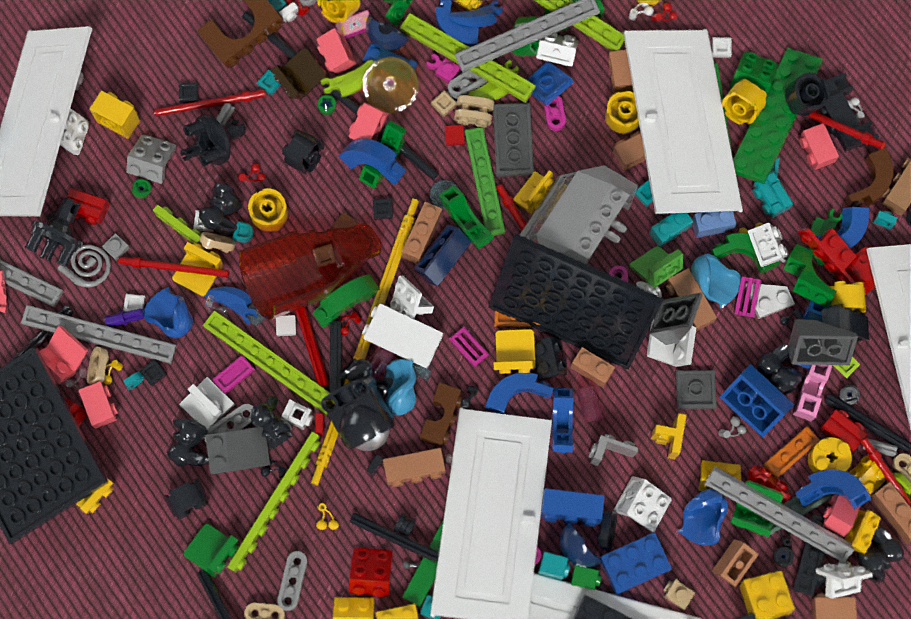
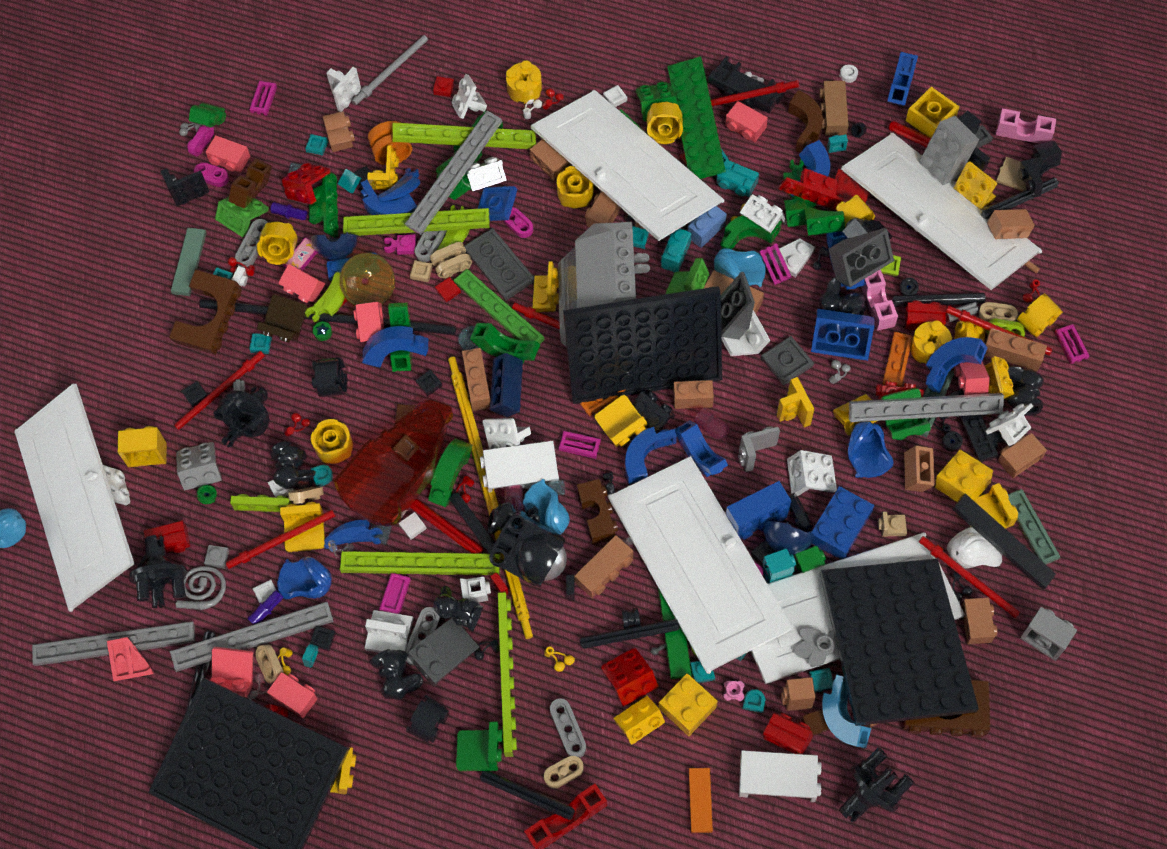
camera: 30 degrees left, 10 degrees down
(552, 544) = (761, 551): none -> black tile
(806, 94) = (710, 84): black brick -> none

